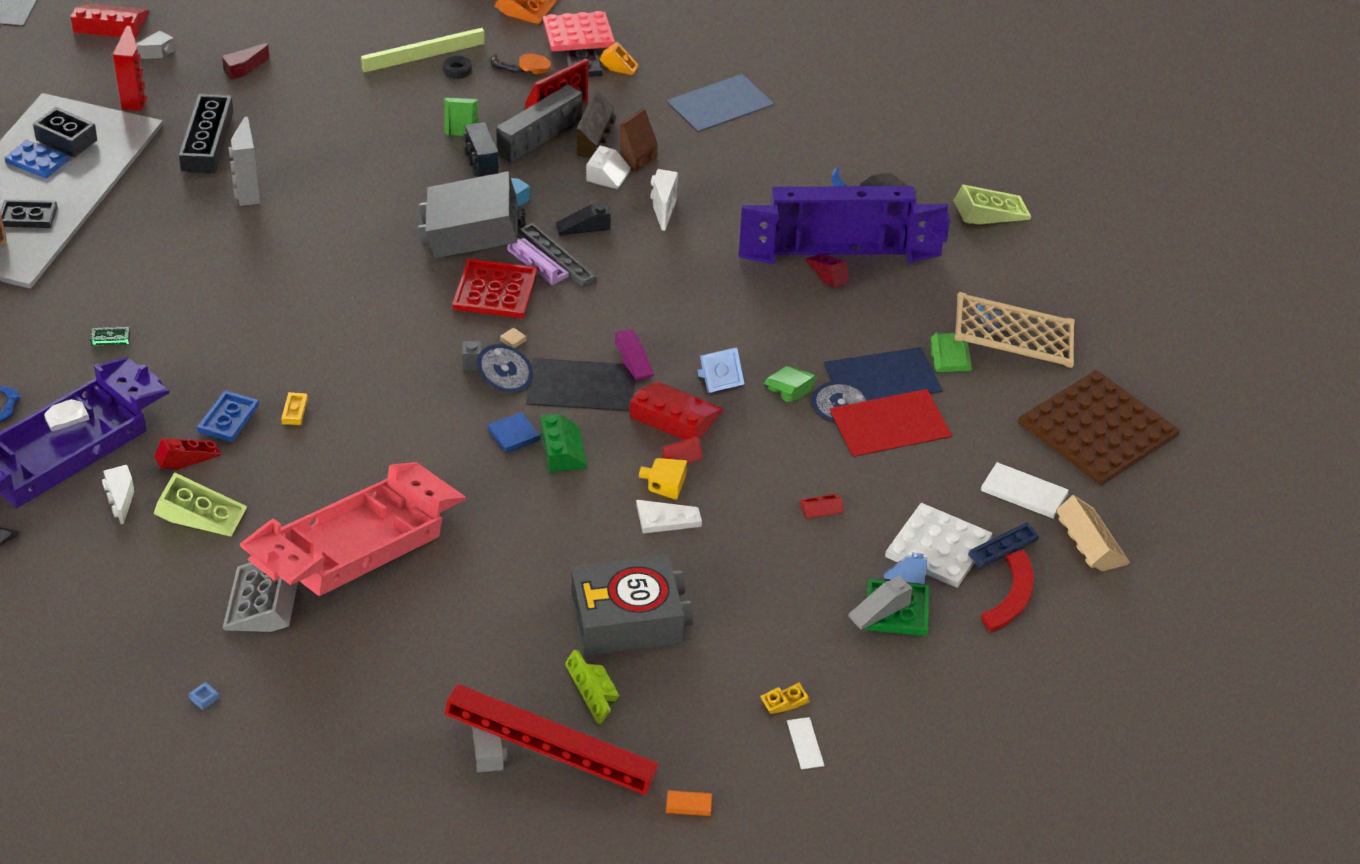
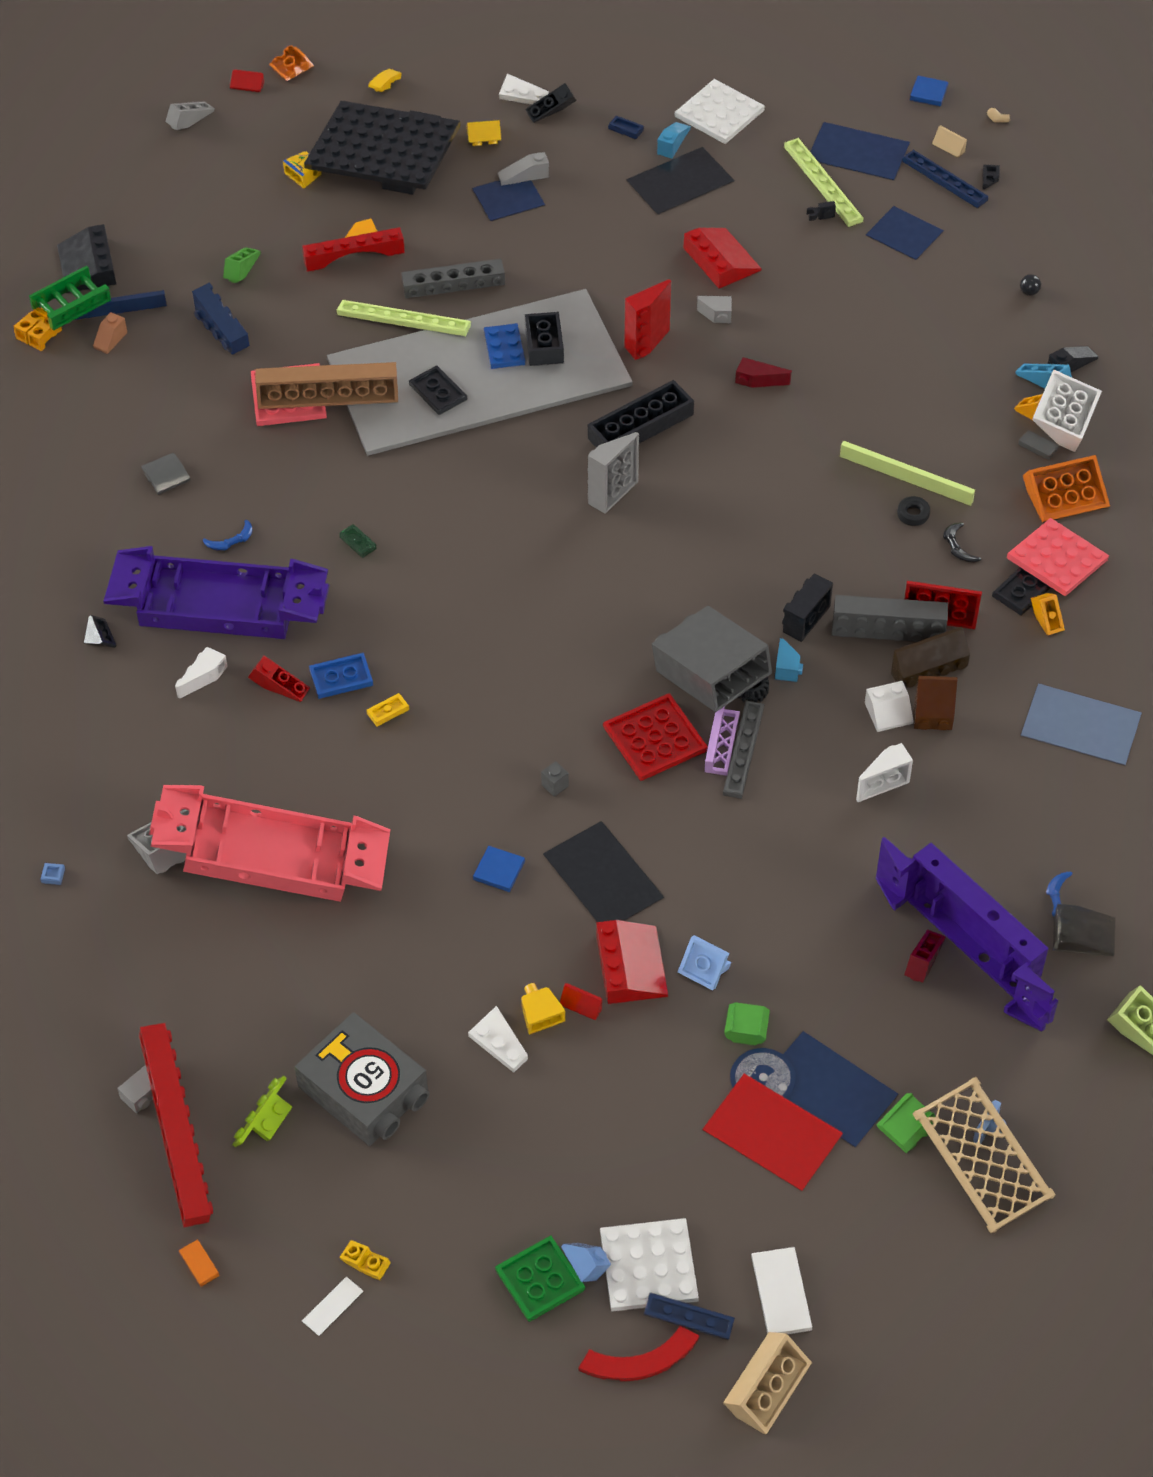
camera: 55 degrees right, 10 degrees up
(66, 414) = (238, 581): white slope -> none
(198, 507) = (228, 730): yellowish green slope -> none
(459, 113) = (839, 562): bright green slope -> none
(505, 368) = (560, 811): dark blue piece -> none
(513, 338) = (609, 791): tan tile -> none
(534, 63) = (976, 558): orange tile -> none
(562, 443) = (512, 910): green slope -> none
(589, 219) = (804, 738): black slope -> none
(633, 354) = (665, 887): magenta slope -> none
(821, 505) = (616, 1144): red slope -> none
(882, 602) = (522, 1263): light grey slope -> none
(1099, 427) = (928, 1304): reddish brown plate -> none

